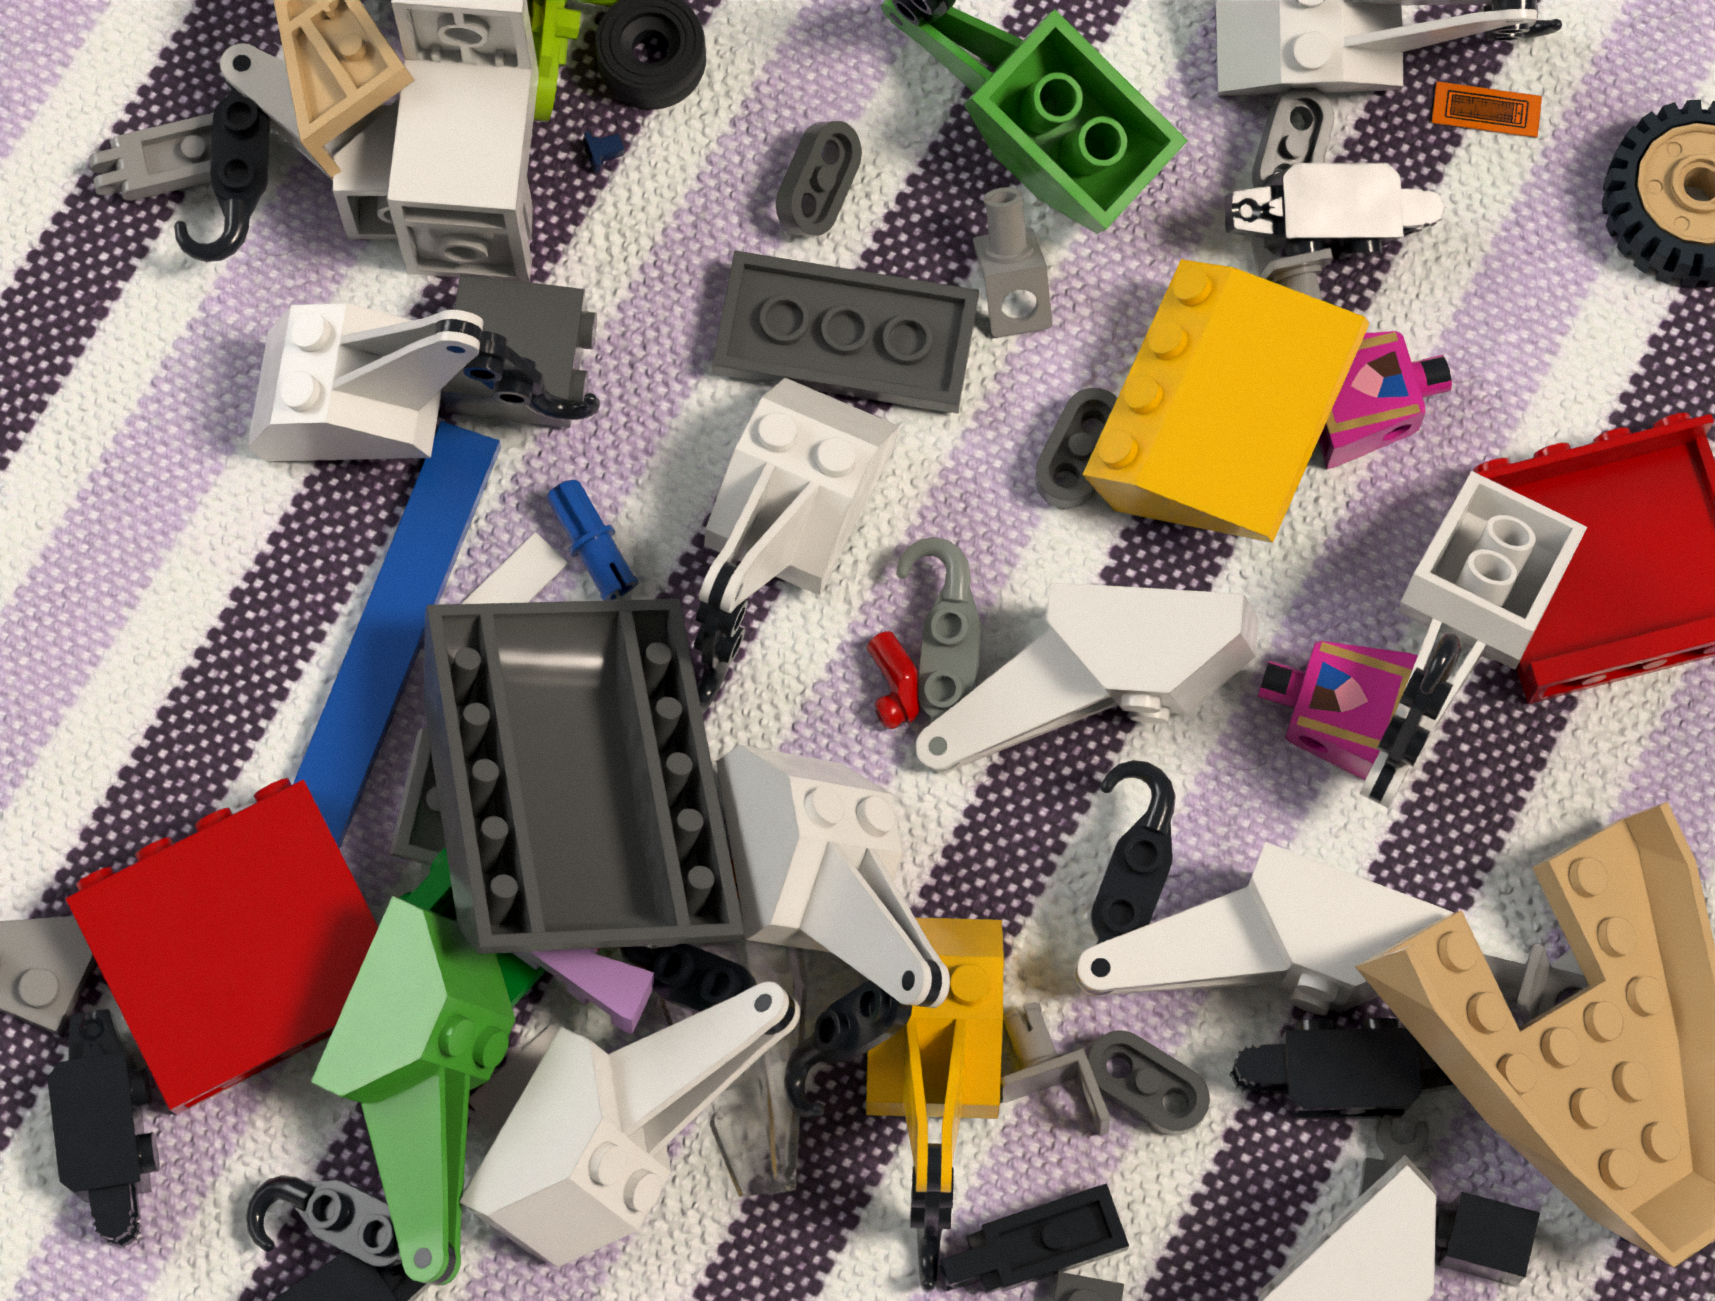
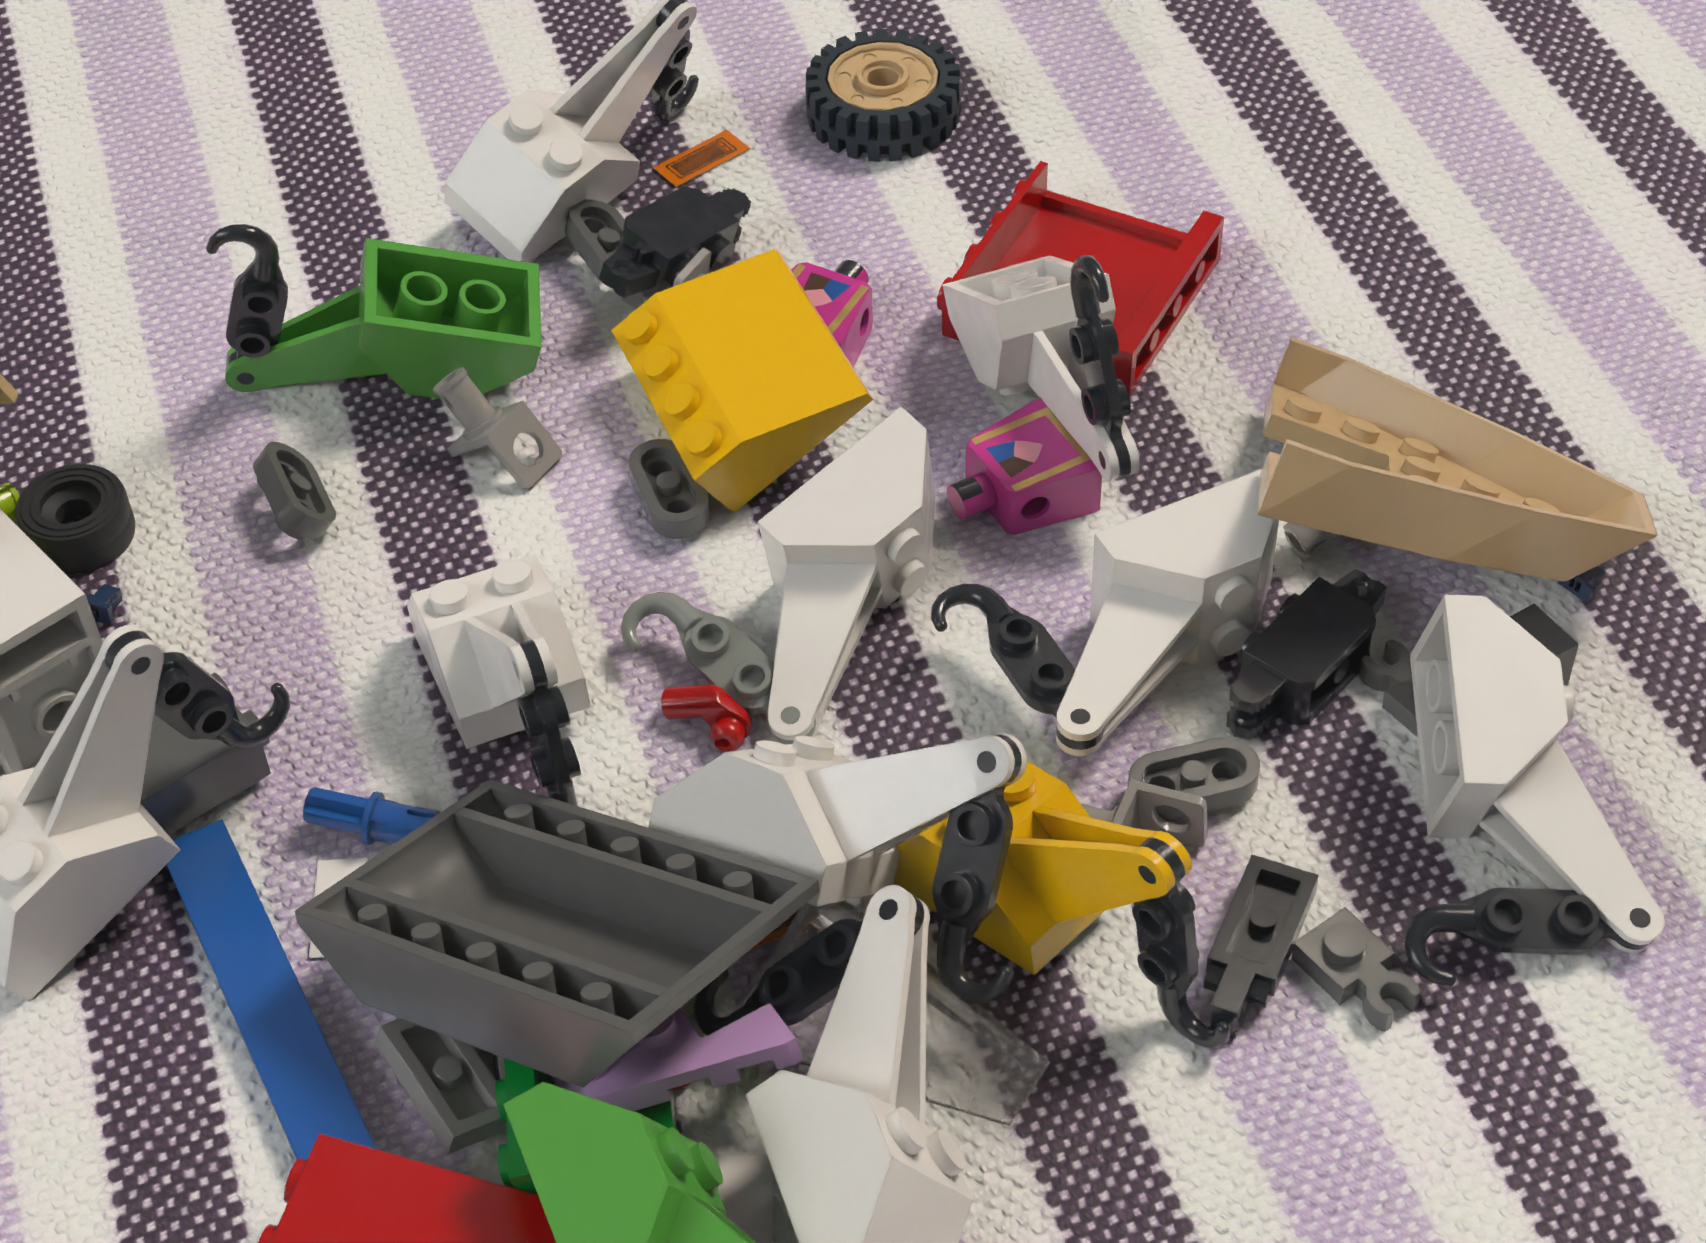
camera: 45 degrees left, 25 degrees down
(846, 331) = (463, 526): dark grey plate -> none

